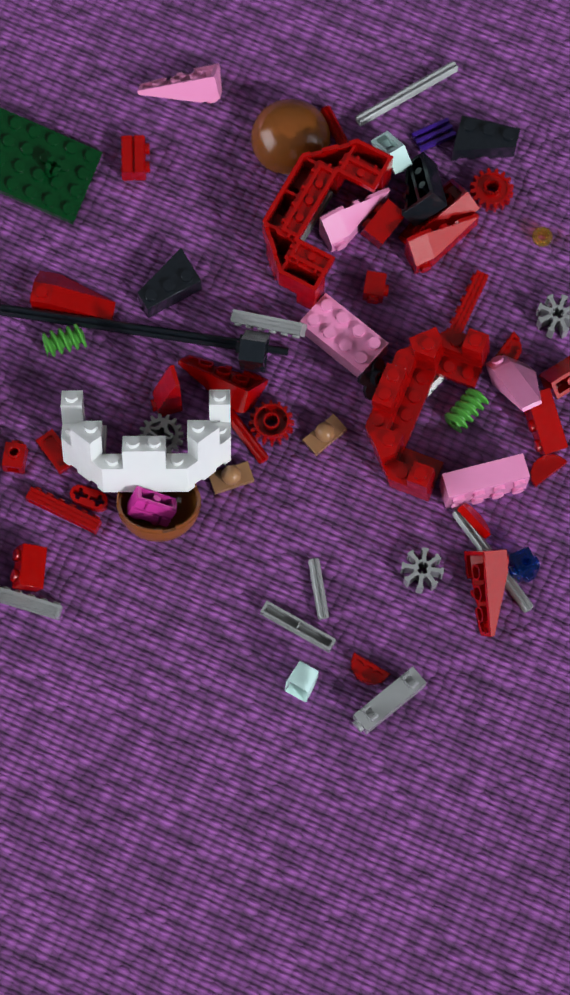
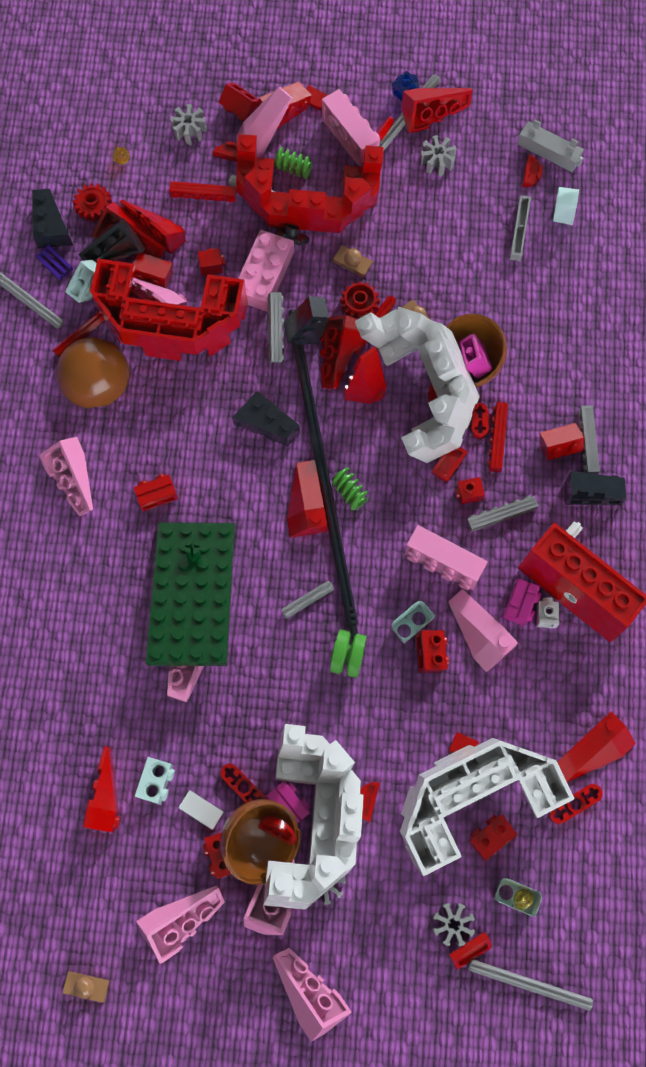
camera: 105 degrees left, 0 degrees up
(163, 428) = (413, 381): light grey gear -> none
(318, 588) = (482, 225): light grey axle -> none

